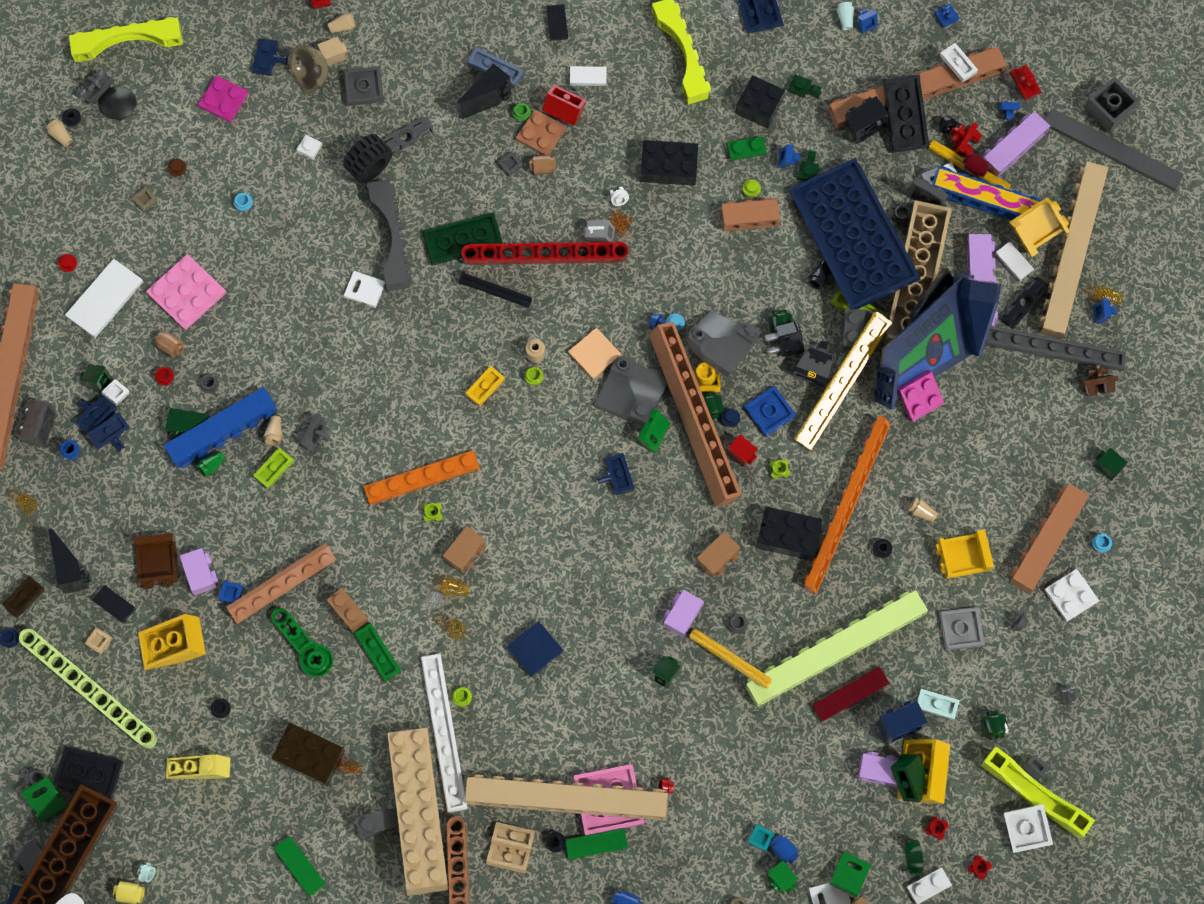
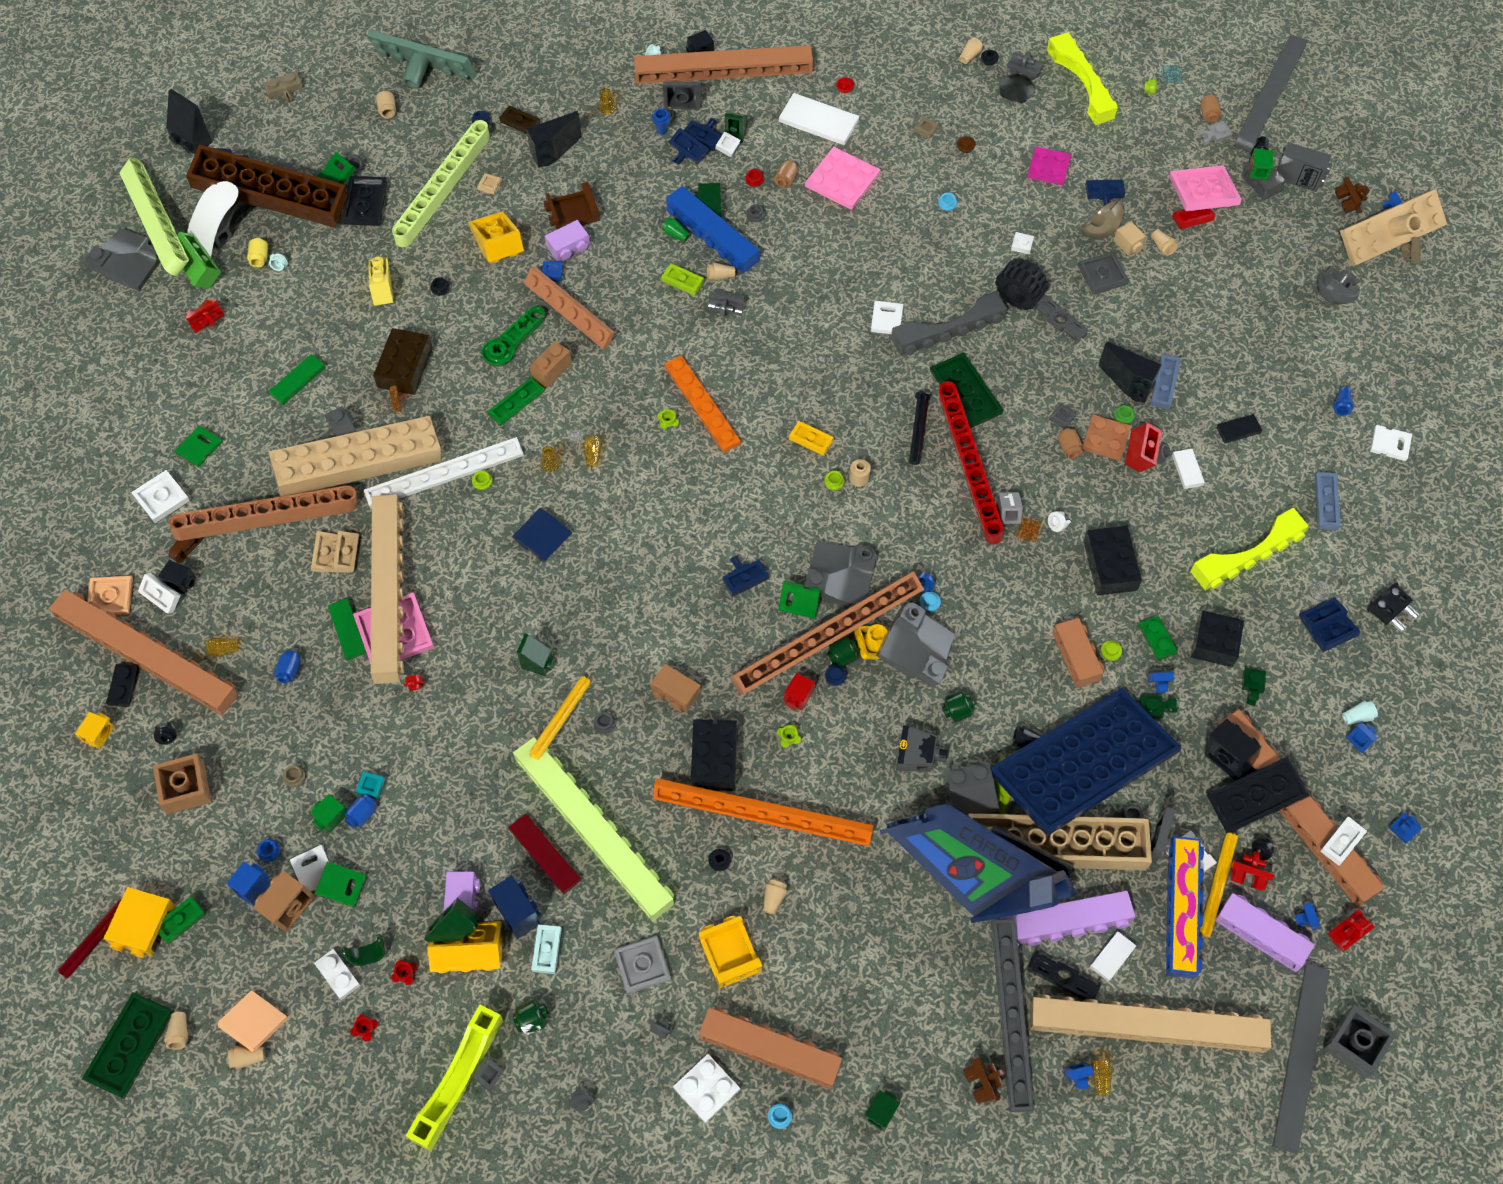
camera: 80 degrees right, 10 degrees down
(114, 604) = (525, 187): black tile -> none
(464, 550) = (632, 452): medium nougat brick -> none
(550, 842) = (343, 590): black plate -> none
(594, 353) = (874, 531): light nougat tile -> none
(683, 613) = (603, 664): lavender brick -> none
(769, 411) = (853, 715): blue tile -> none
(789, 339) = (940, 713): black piece -> none
(842, 380) = (906, 778): tile -> none
(920, 395) = (910, 868): dark pink plate -> none
(976, 165) = (1219, 885): dark red brick -> none
(1028, 828) = (413, 1074): white plate -> none
(1039, 225) = (1162, 970): yellow panel -> none

